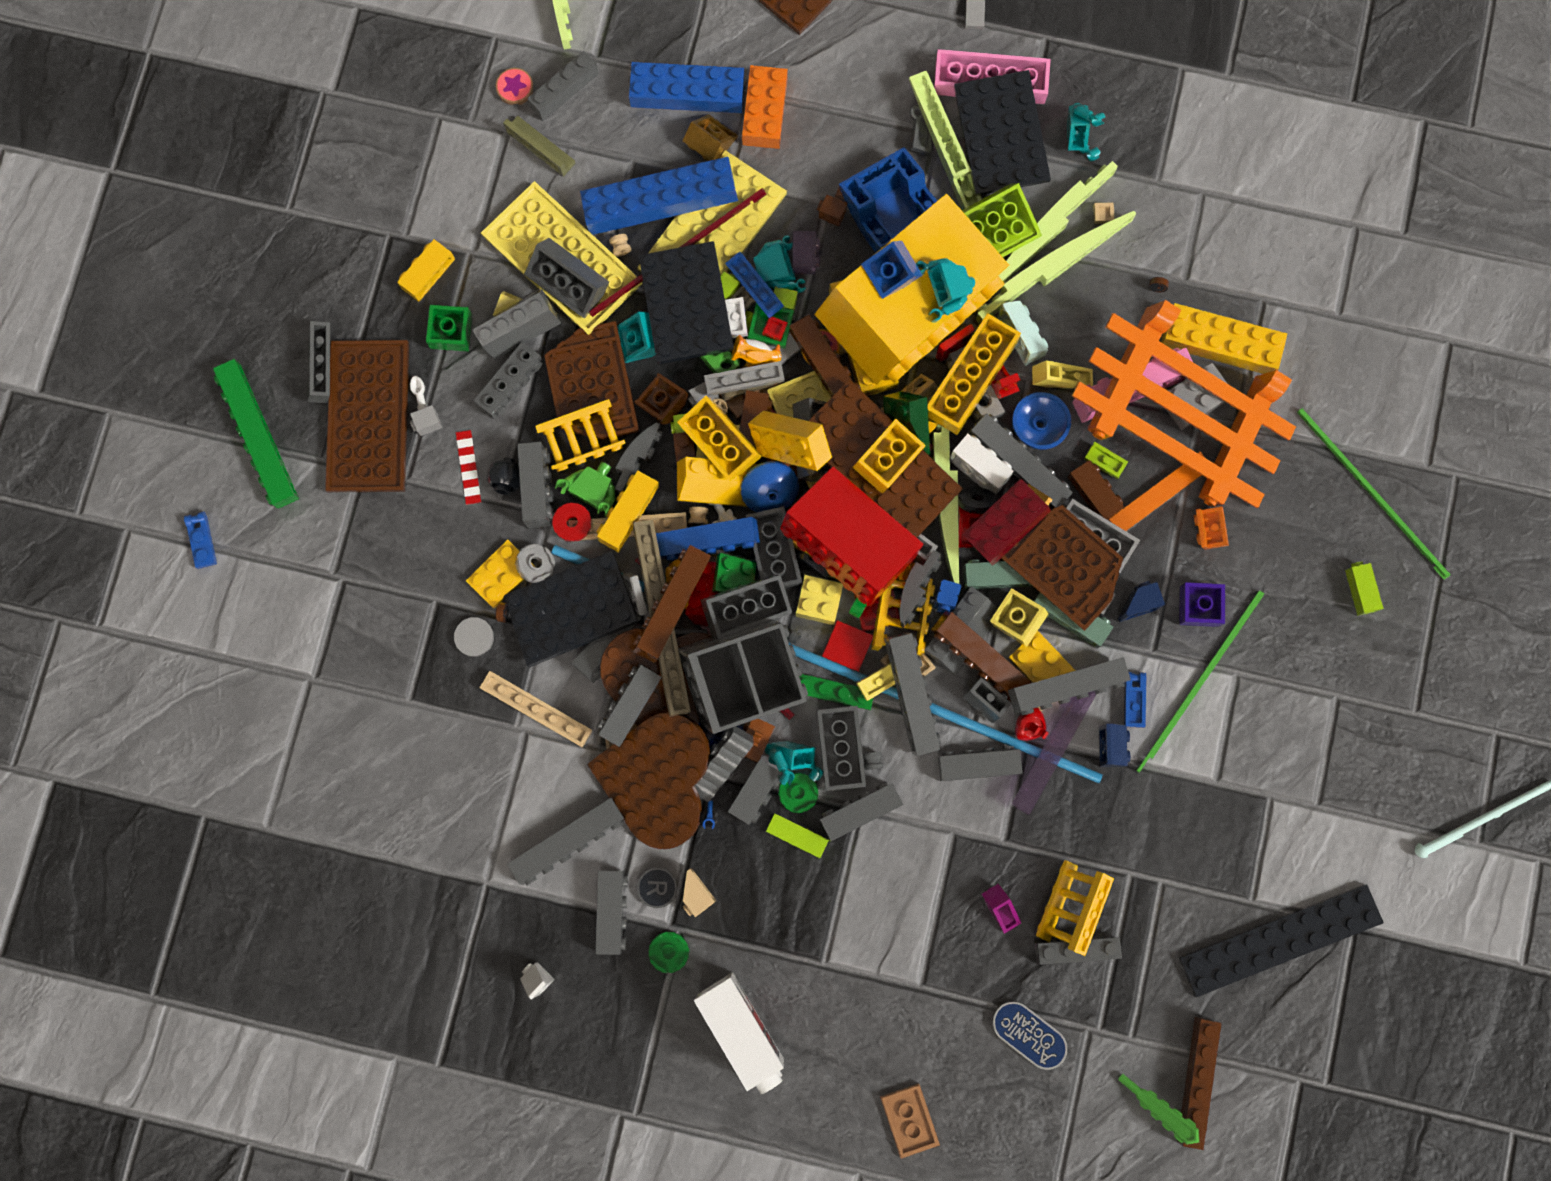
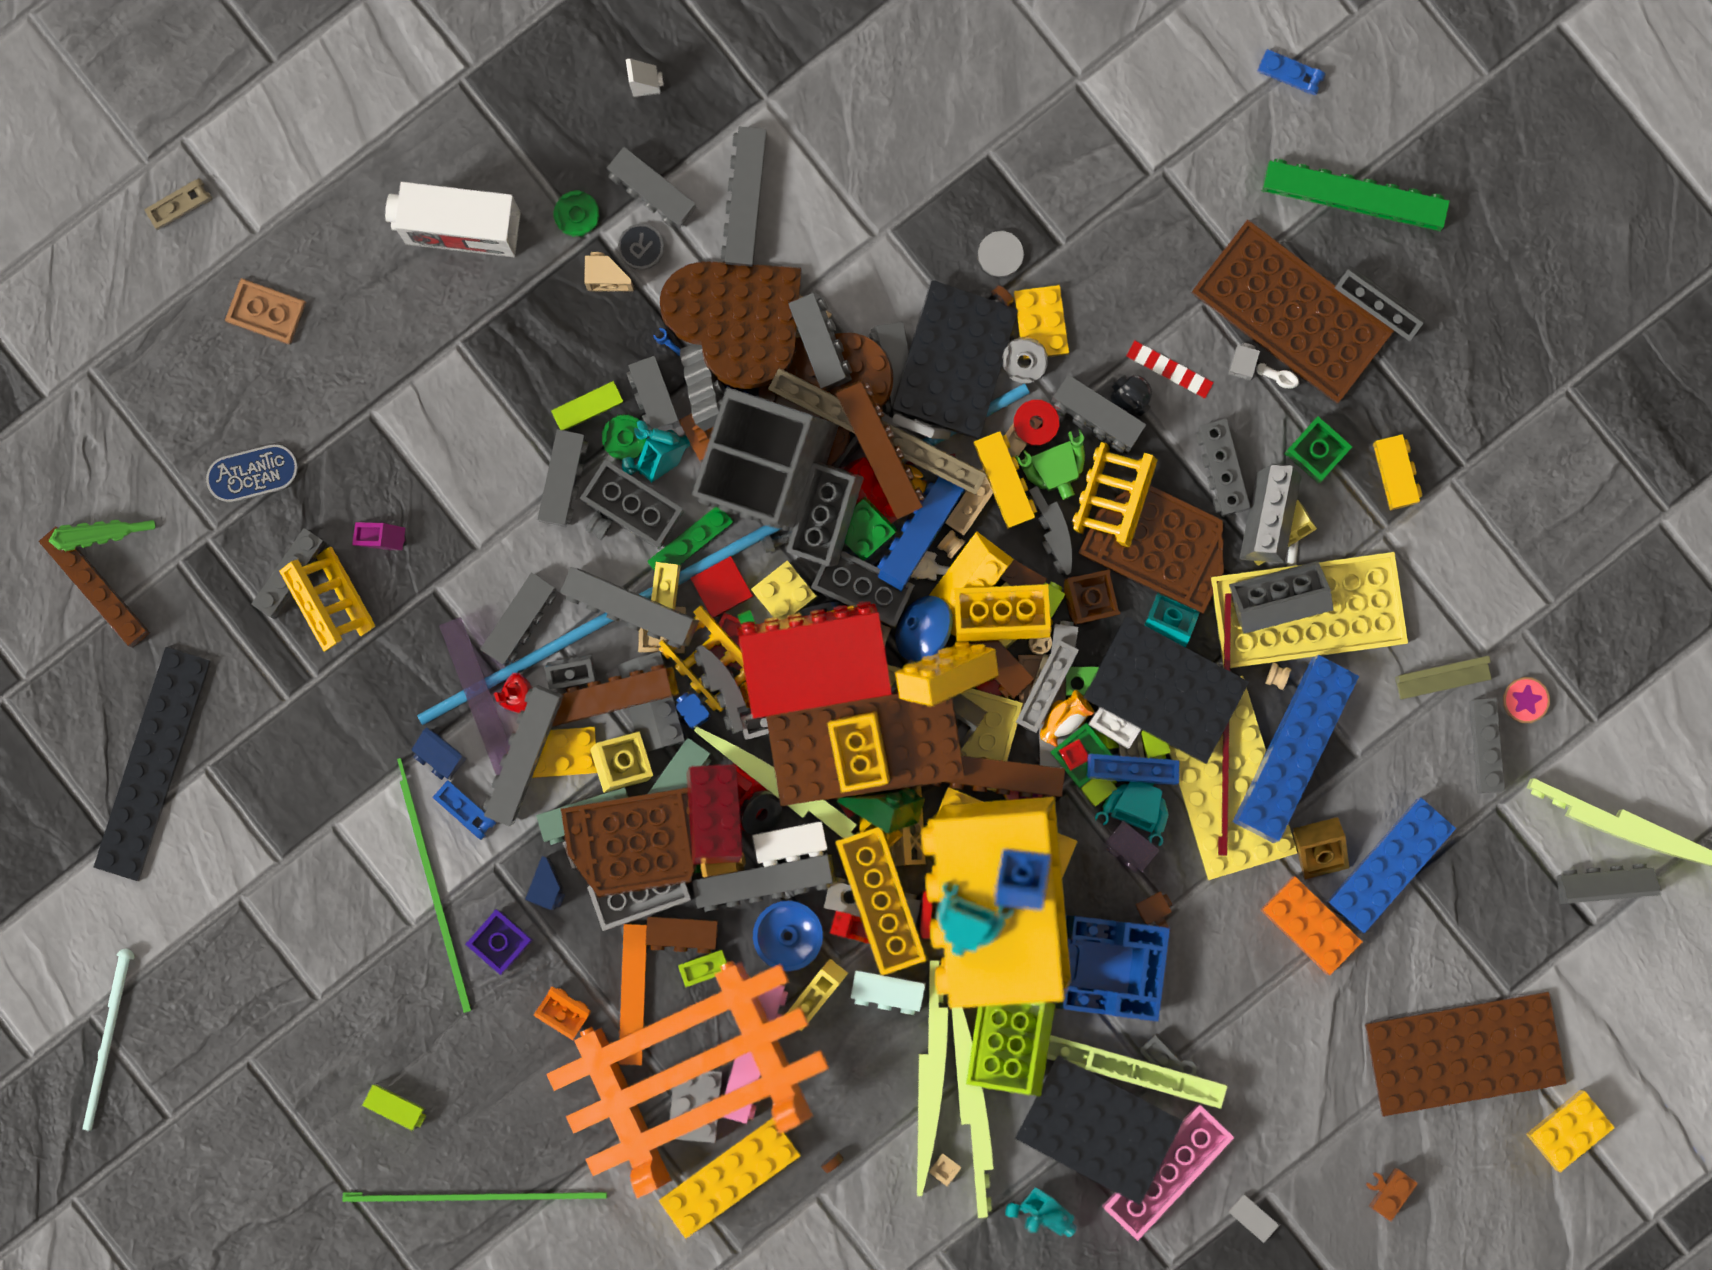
camera: 130 degrees right, 5 degrees up
(536, 709) = (888, 259): tan plate -> none

